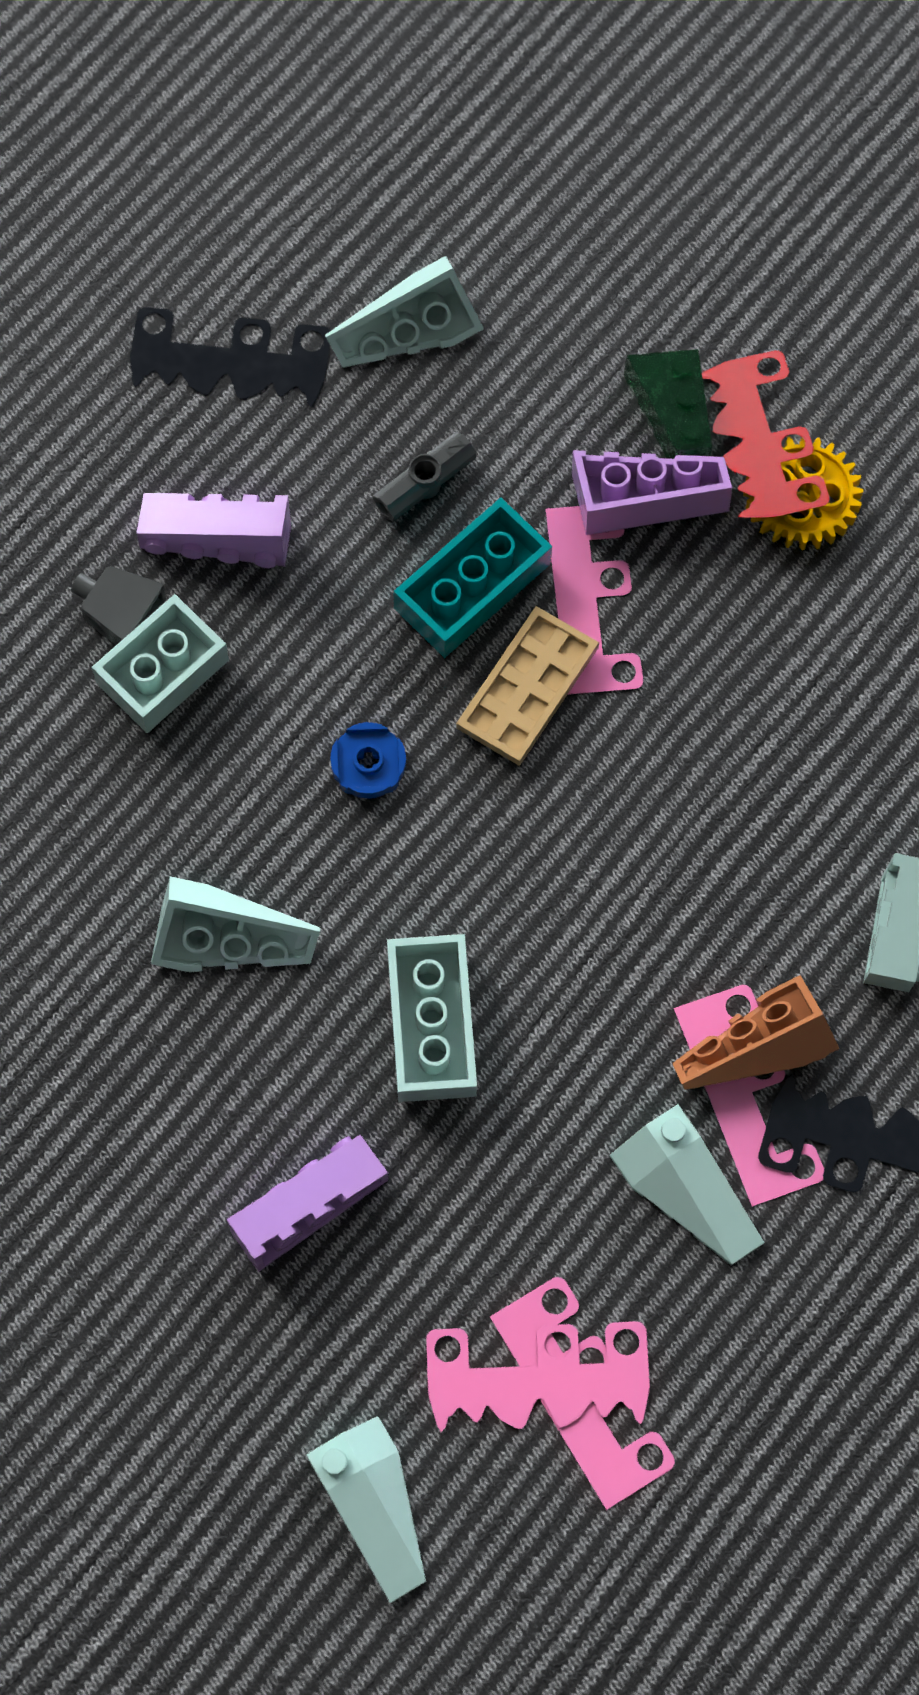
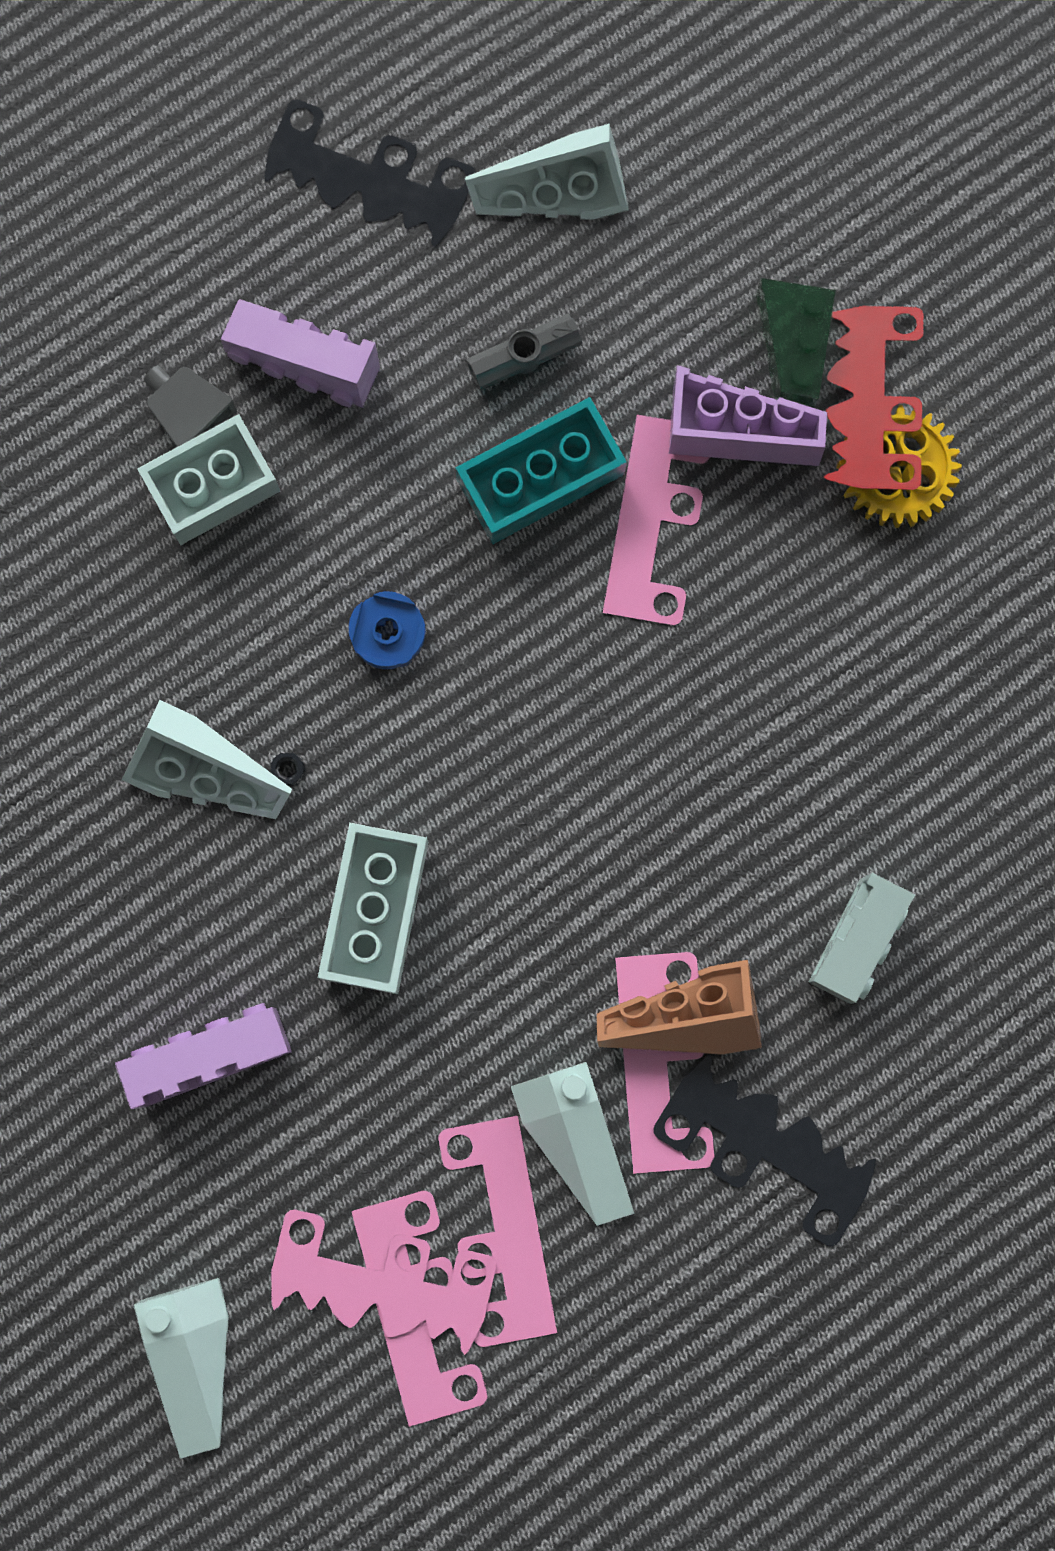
camera: 15 degrees right, 10 degrees up
(305, 902) = (286, 757): none -> black axle
(527, 685) = (565, 595): tan plate -> none
(657, 1297) = (516, 1235): none -> bright pink piece

